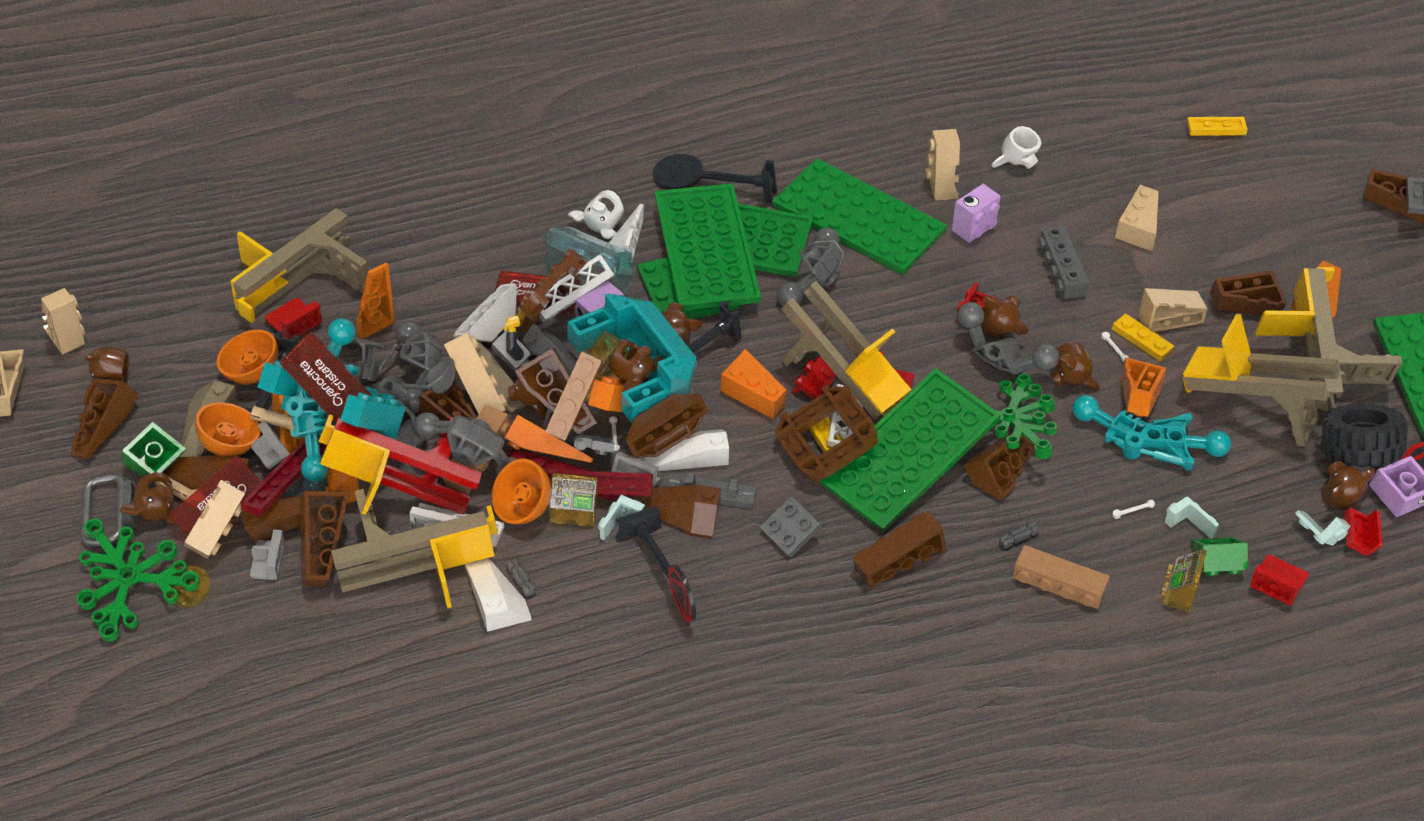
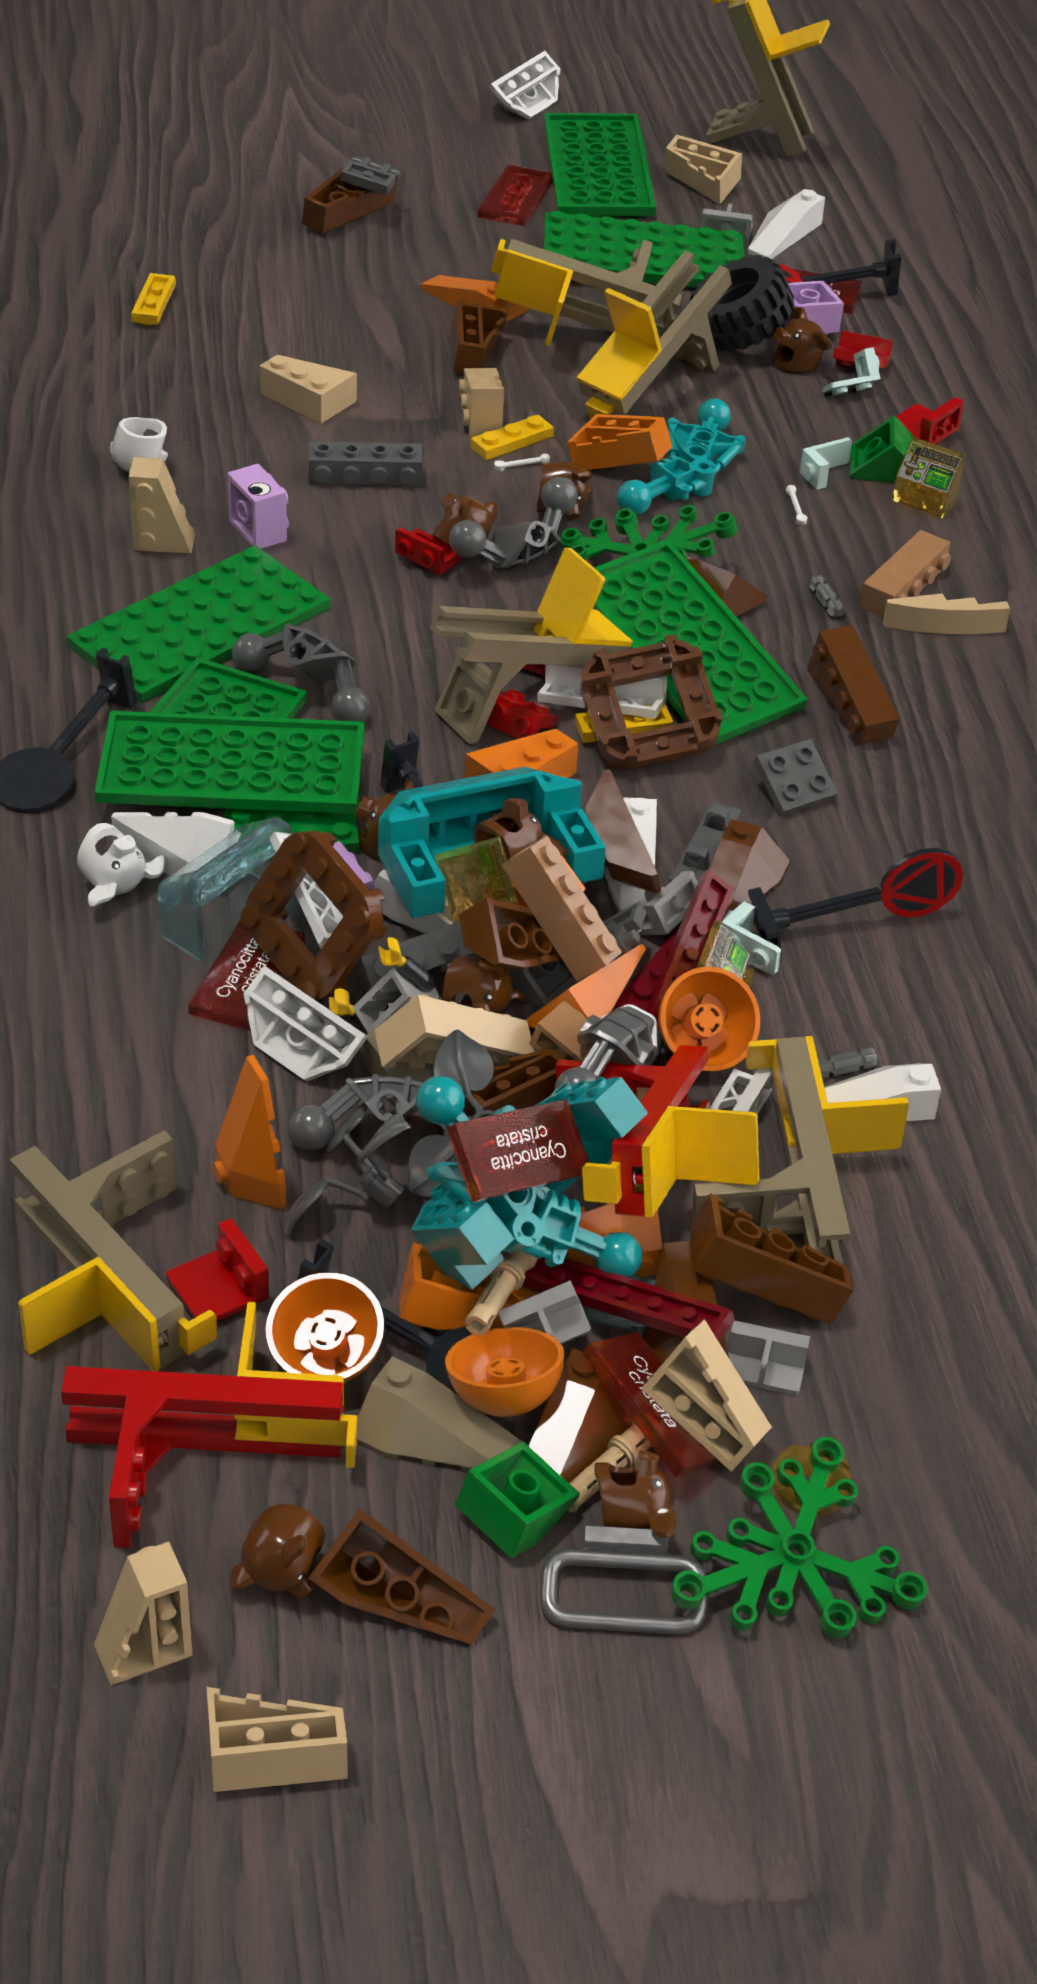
camera: 80 degrees left, 5 degrees down
(198, 332) = (270, 1412): none -> red piece
(1017, 601) = (945, 616): none -> tan slope

